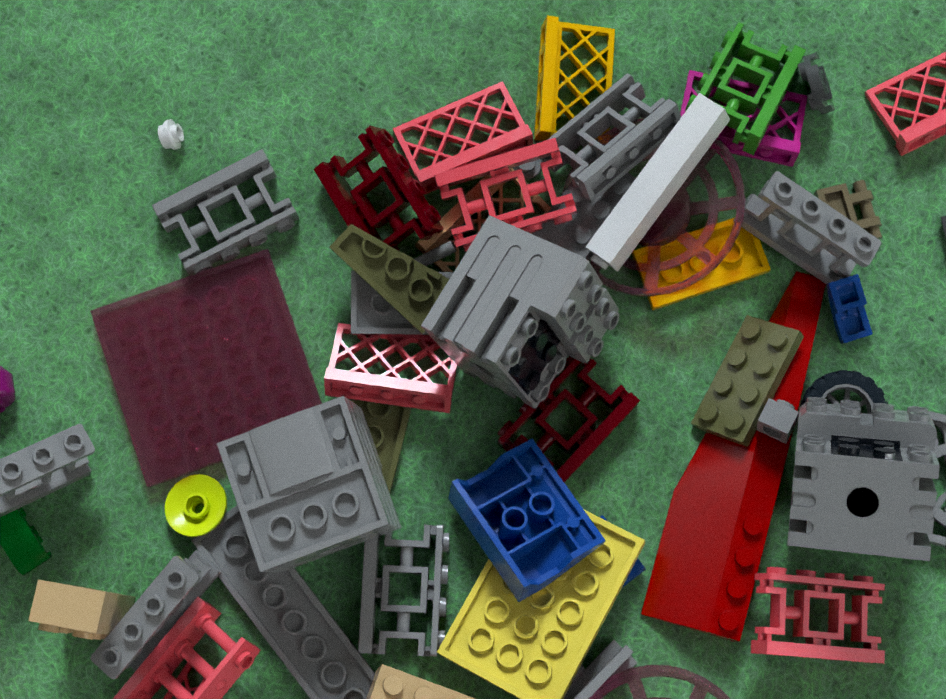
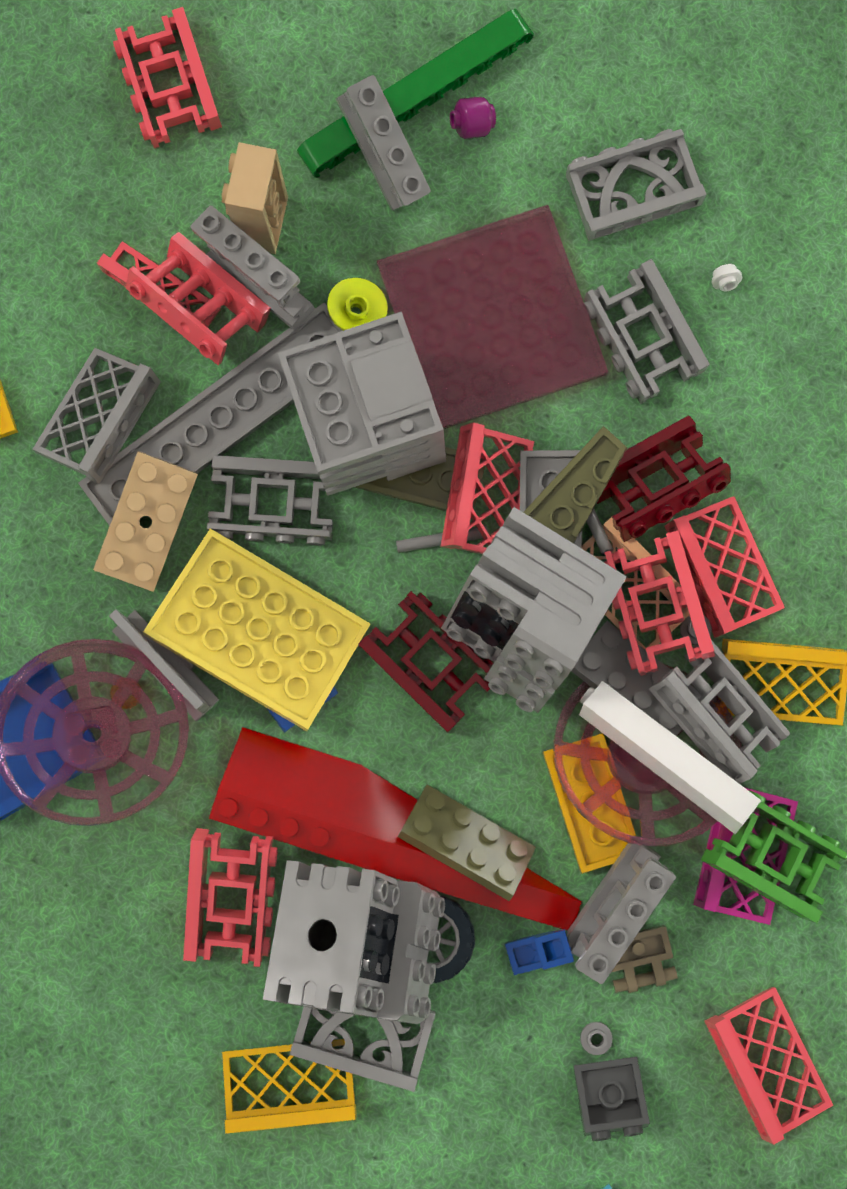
camera: 90 degrees right, 5 degrees up
(105, 248) = (630, 156): none -> light grey fence
(443, 428) = (431, 540): none -> light grey bar
(525, 519) = (332, 615): blue piece -> none
(778, 420) = (422, 866): light grey plate -> none
(818, 83) = (781, 933): dark grey plate -> none
(920, 261) = (594, 1028): none -> light grey plate

